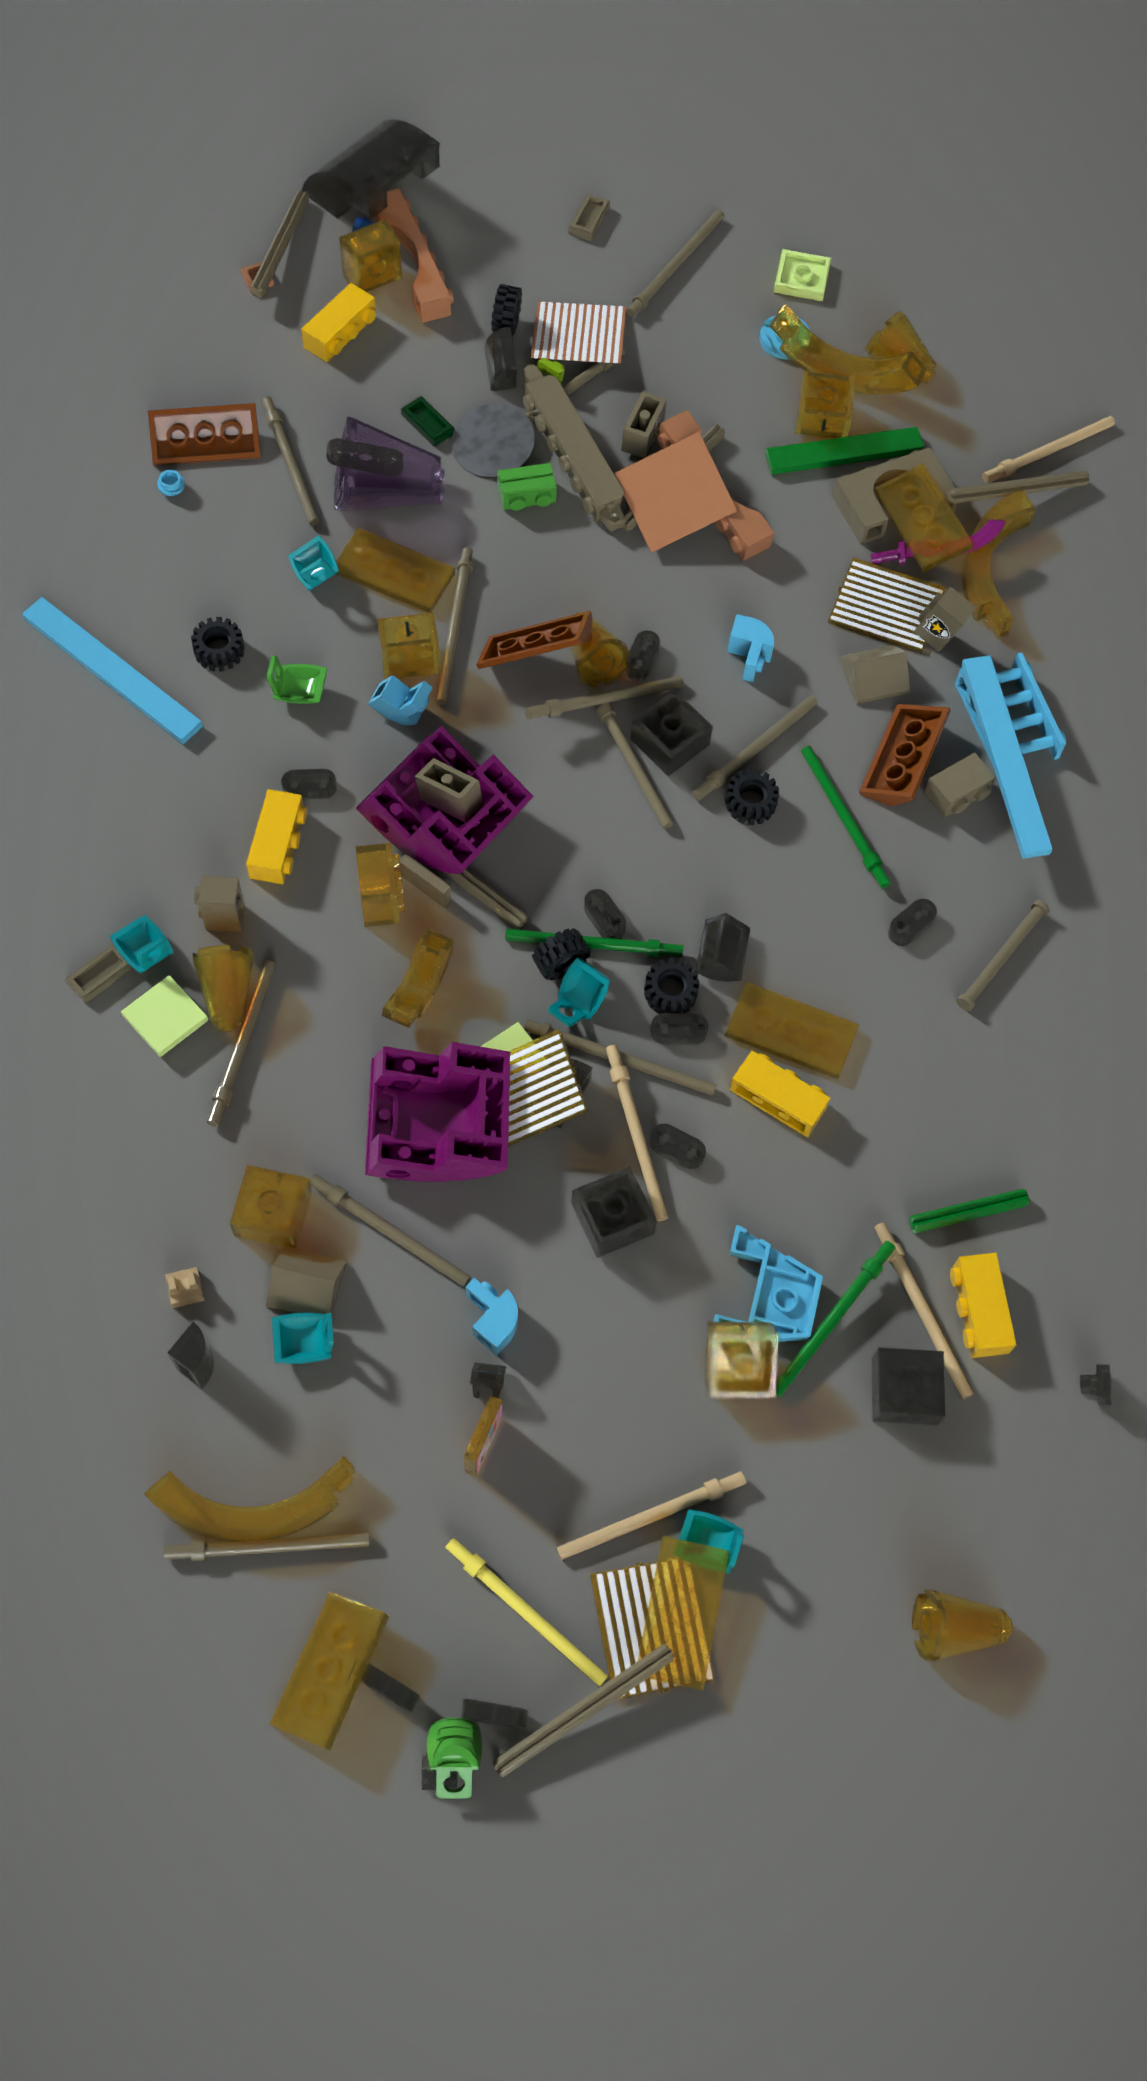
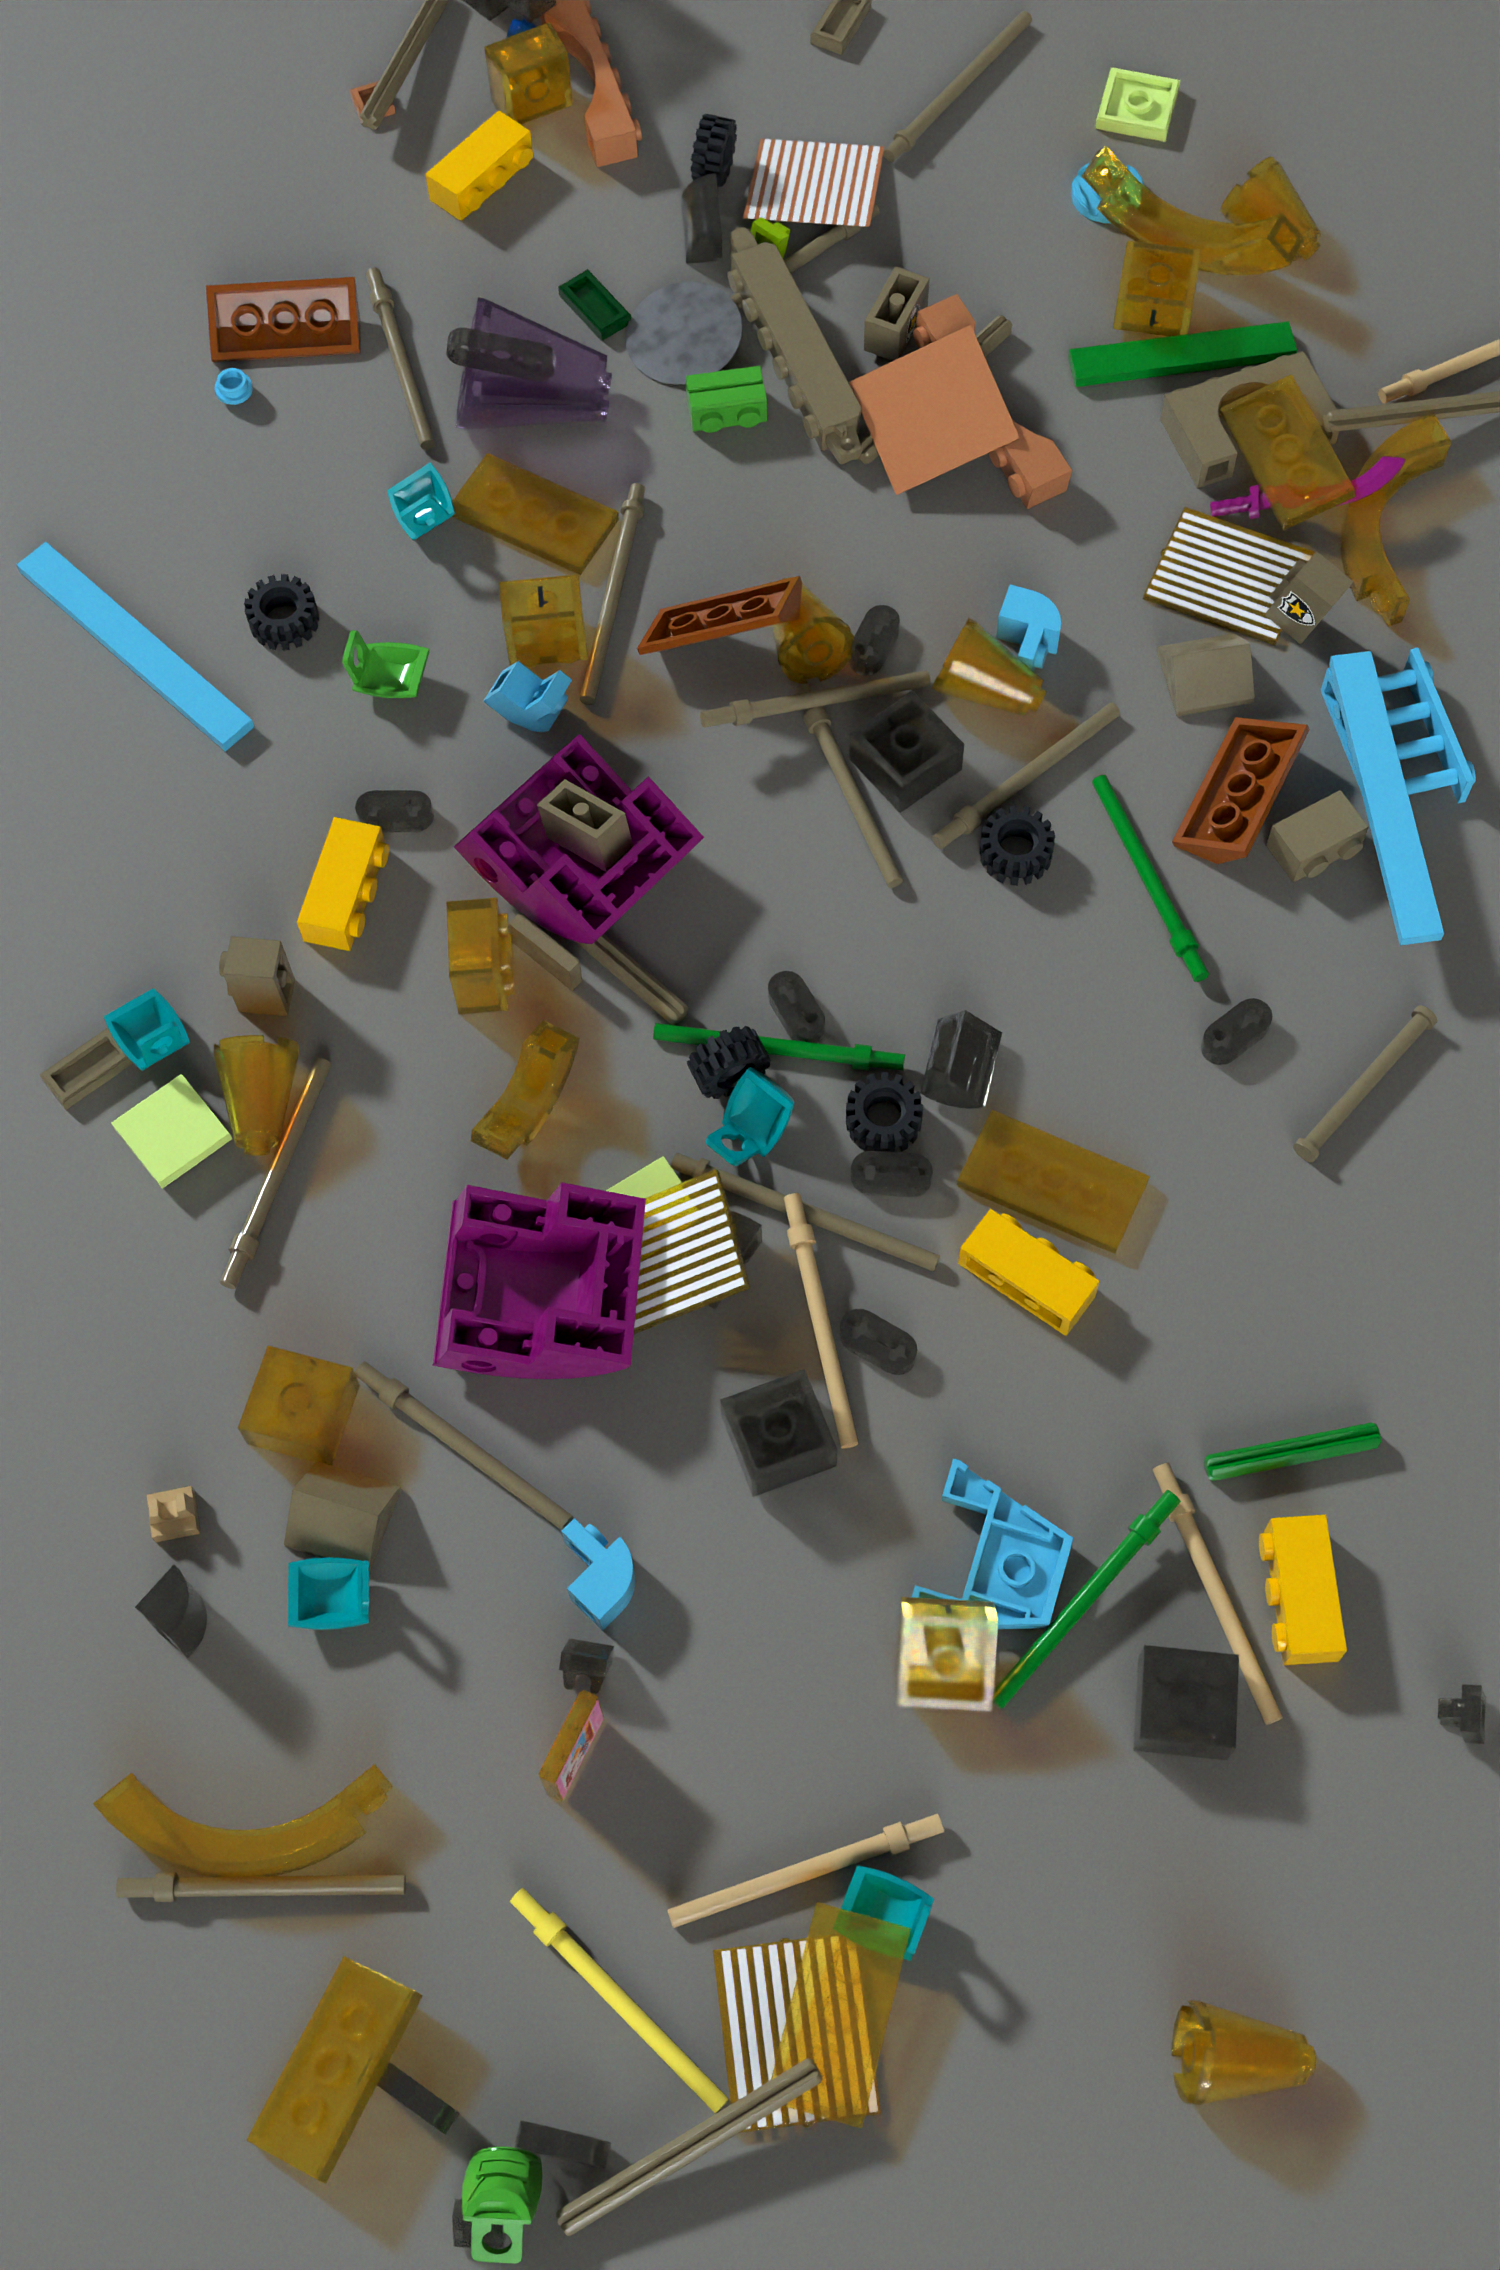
camera: 10 degrees right, 0 degrees up
(725, 677) = (988, 673): none -> clear yellow cone

